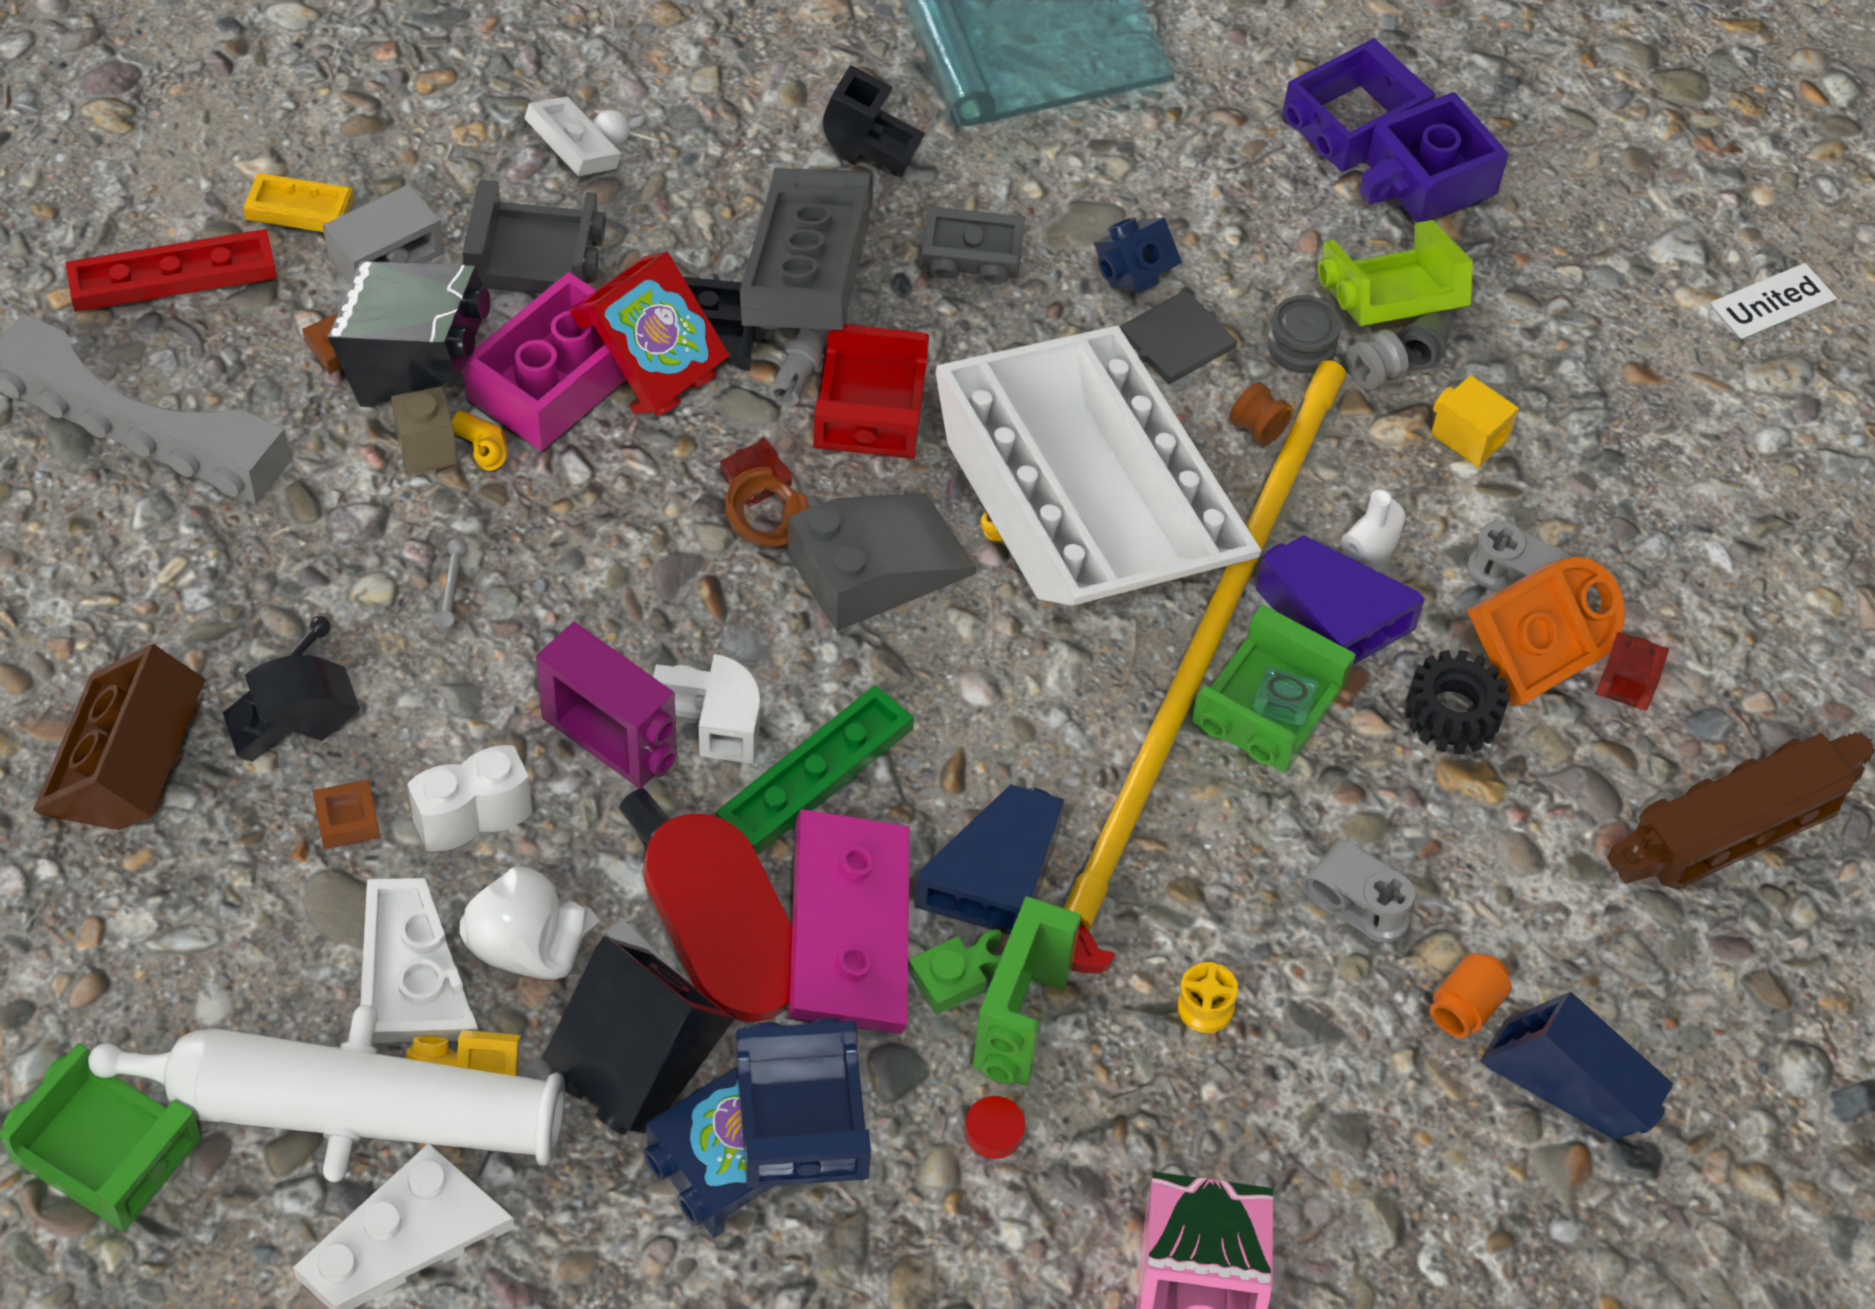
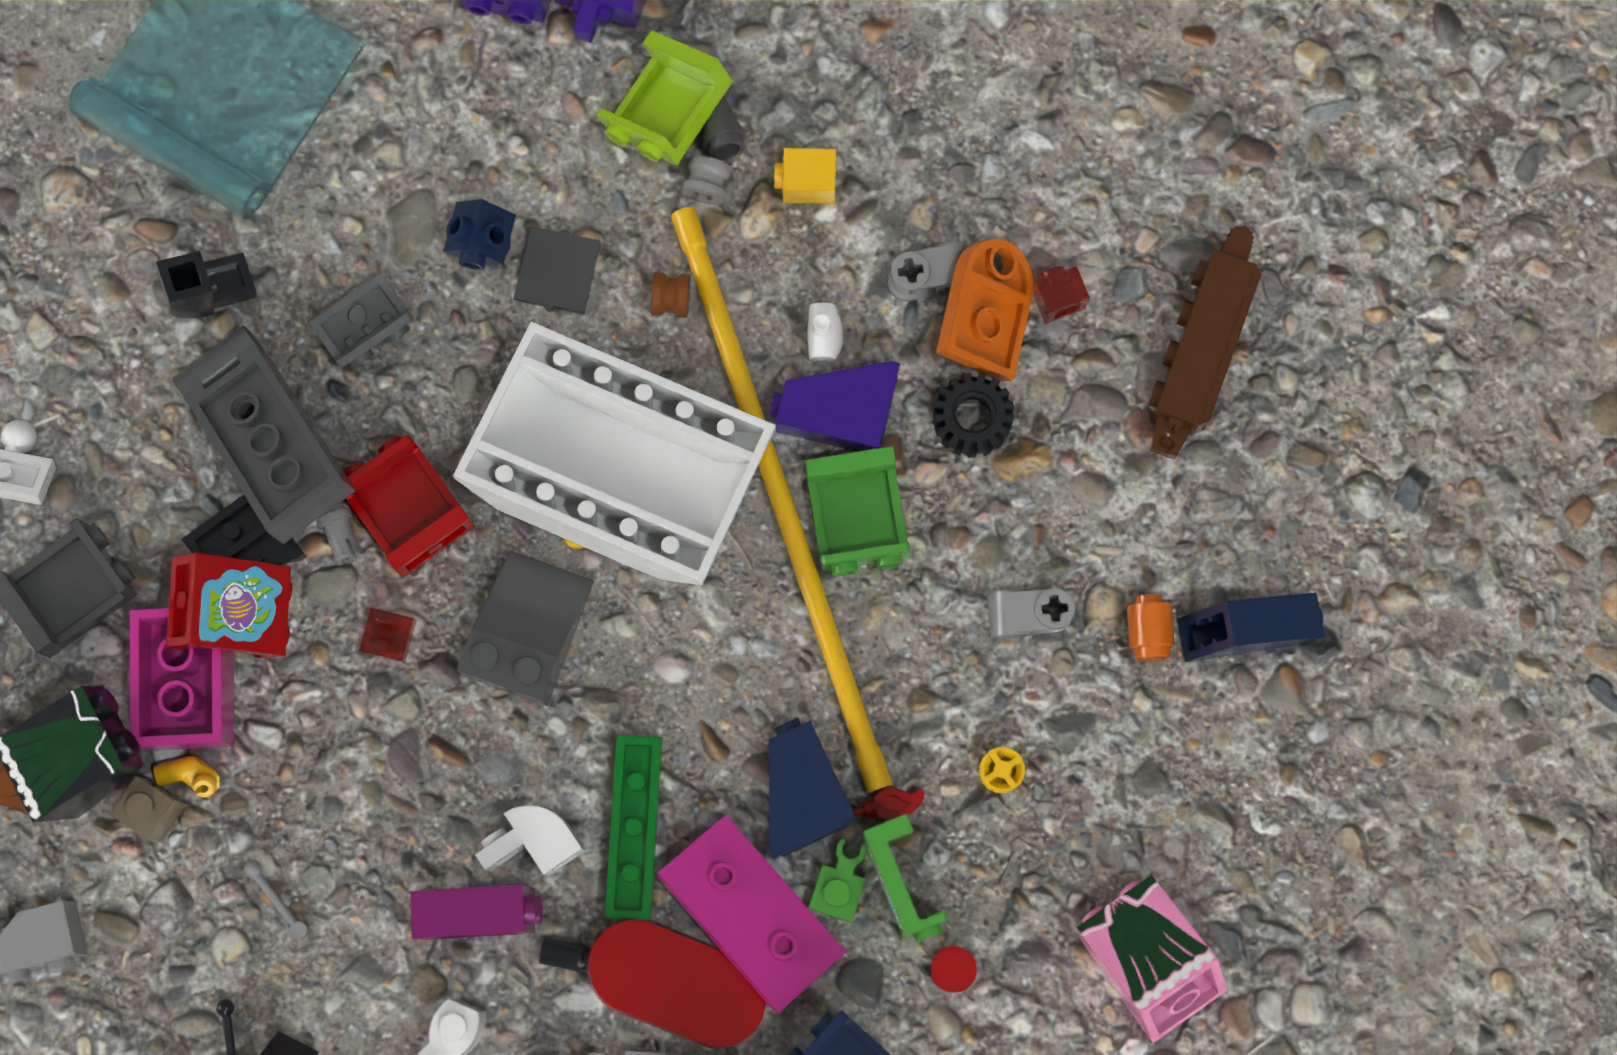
camera: 35 degrees left, 25 degrees up
(753, 483) = (446, 677): dark orange piece -> none
(1285, 696) = (870, 509): clear light blue tile -> none
(1304, 333) = (641, 198): dark grey wheel -> none

